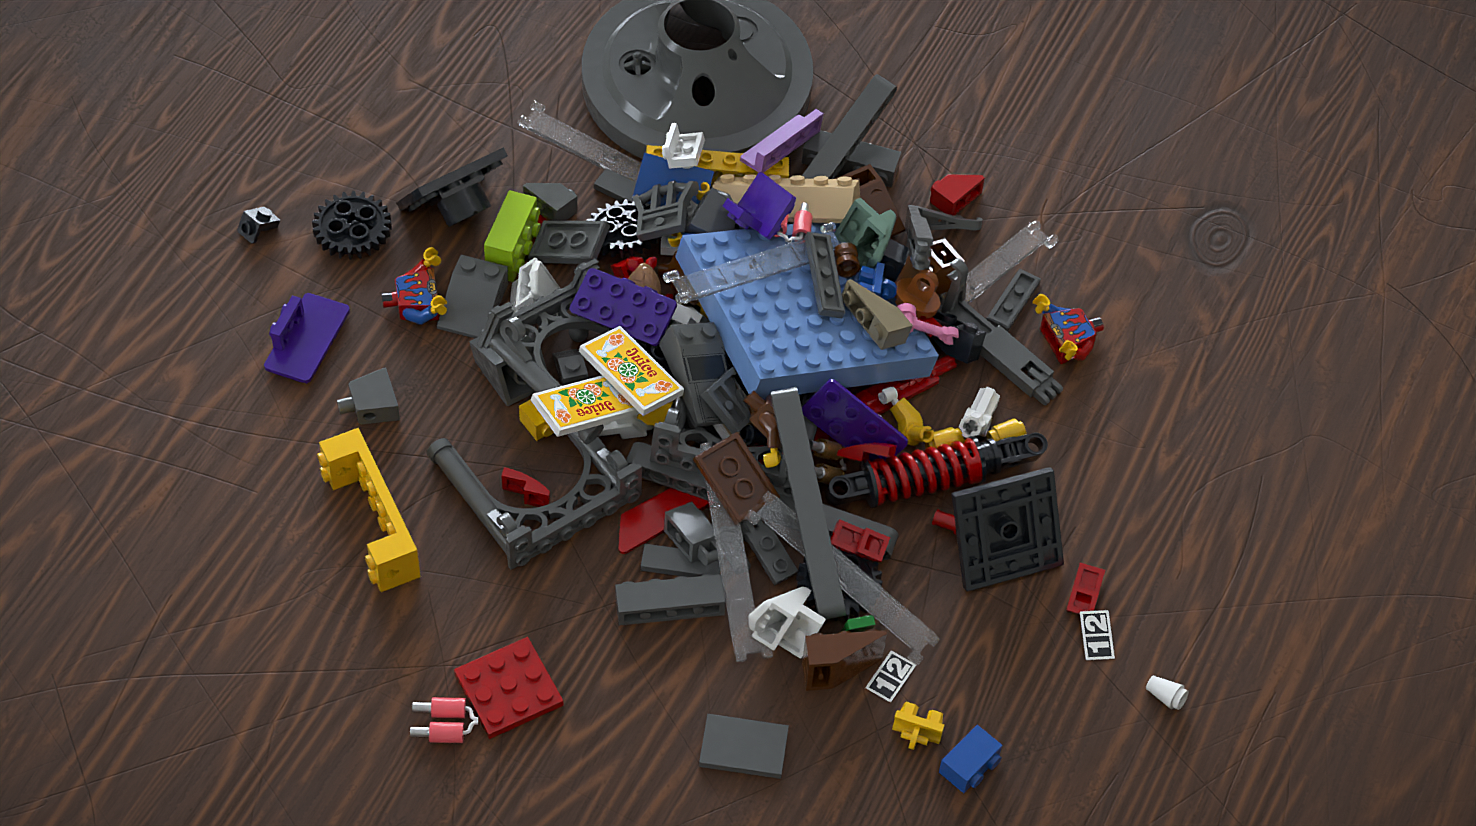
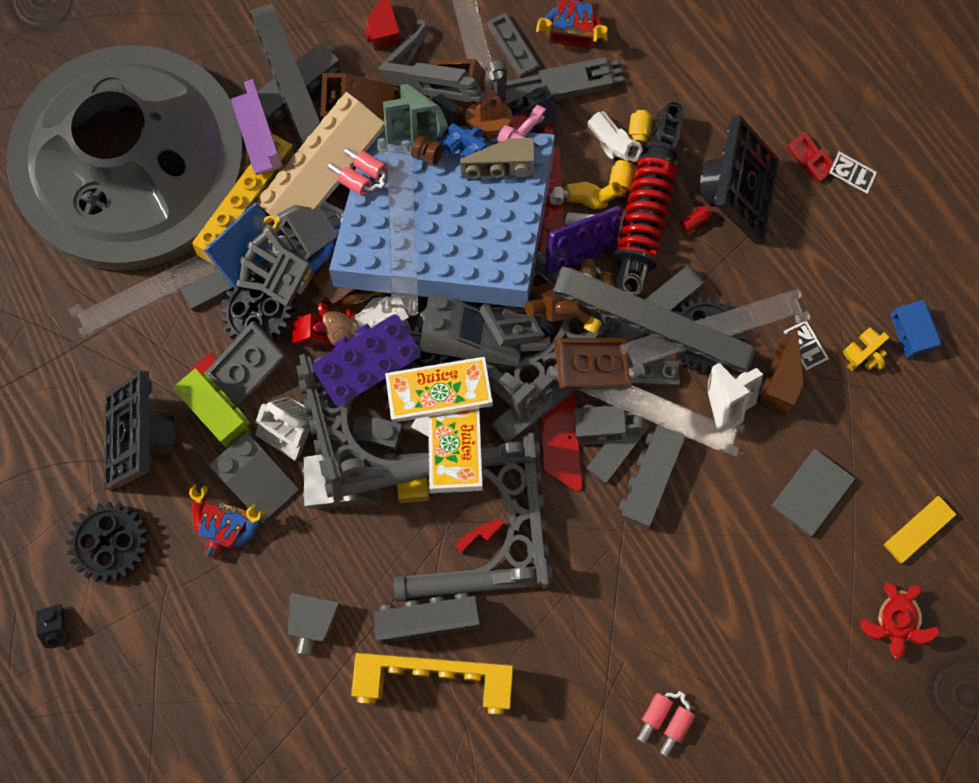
camera: 55 degrees left, 20 degrees up
(304, 335) = (206, 644): dark purple bracket -> none
(423, 481) = (426, 619): none -> dark grey slope
(508, 687) = (661, 651): red plate -> none
(553, 199) = (189, 354): dark grey slope -> none
(682, 149) = (224, 214): white bracket -> none
(762, 206) = (336, 186): dark purple bracket -> none
(824, 275) = (436, 176): dark grey tile -> none
(859, 541) = (689, 297): red slope -> none
(859, 624) = (767, 346): green tile -> none
(861, 451) = (608, 249): red slope -> none
(1168, 692) = (931, 152): white cone -> none

